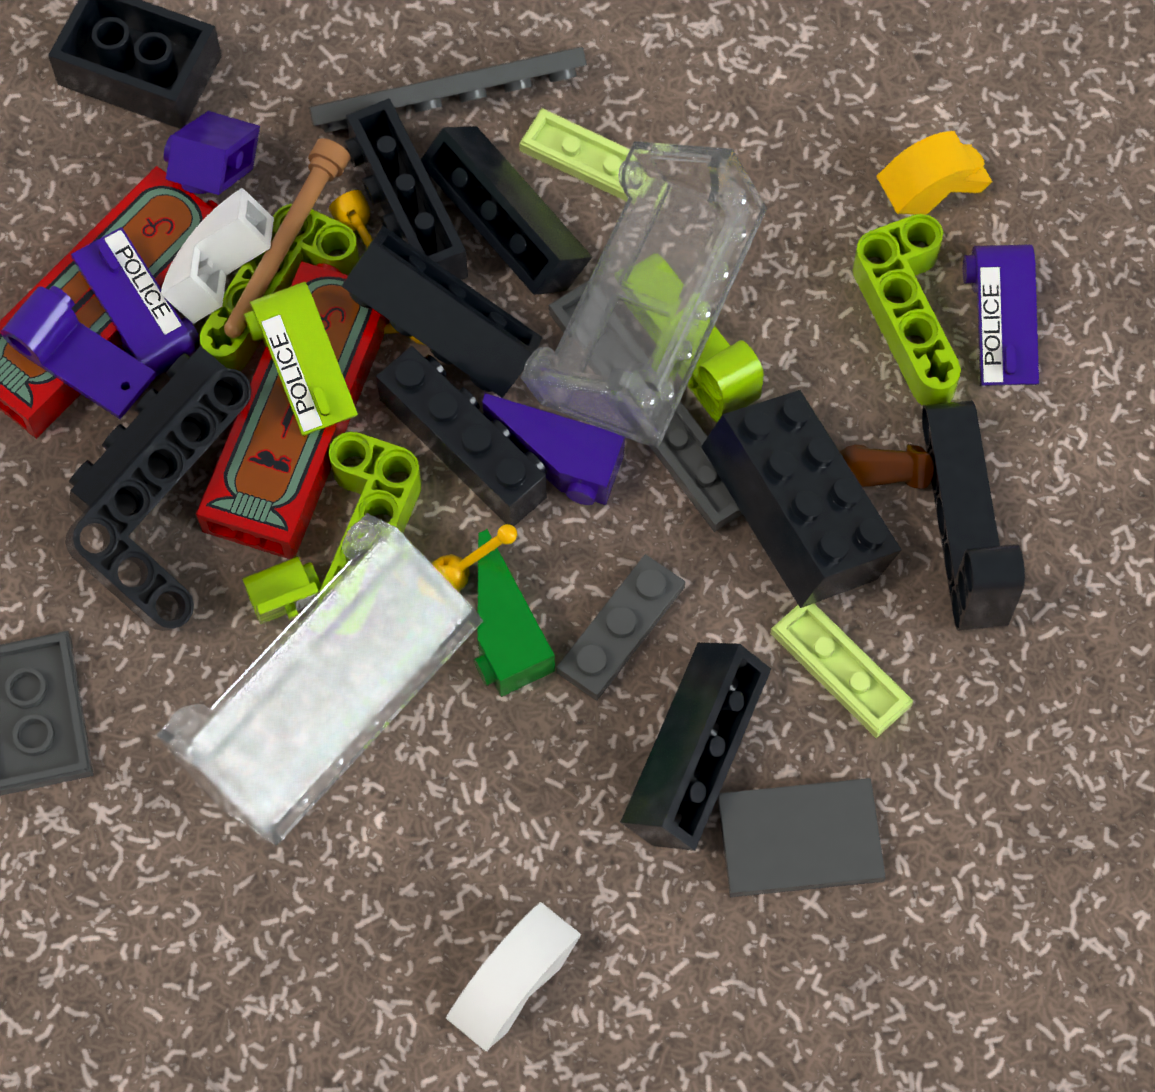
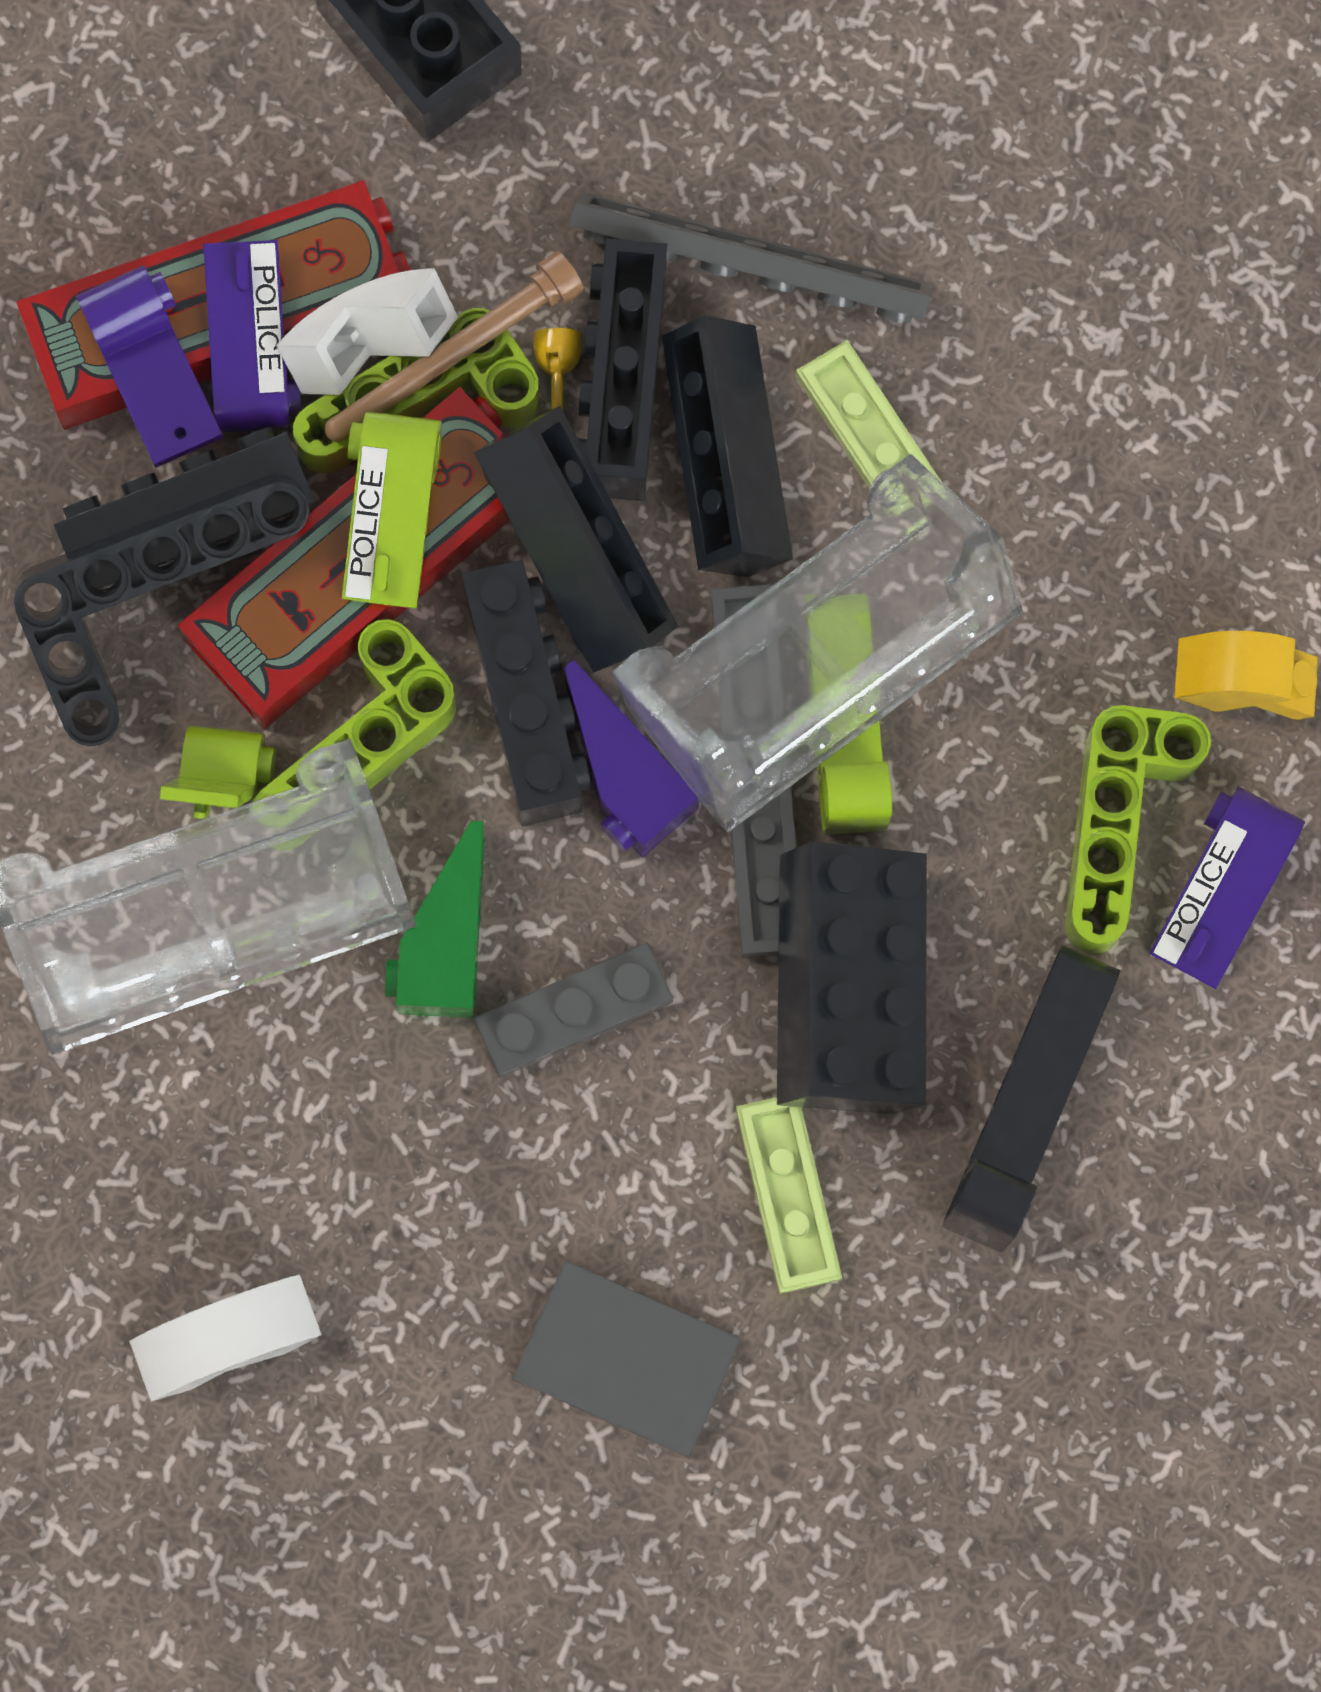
camera: 25 degrees right, 10 degrees up
(211, 153) = (433, 198): dark purple brick -> none
(457, 569) = (424, 851): yellow hinge -> none
(696, 745) = (569, 1196): black brick -> none
(885, 466) = (960, 984): reddish brown piece -> none

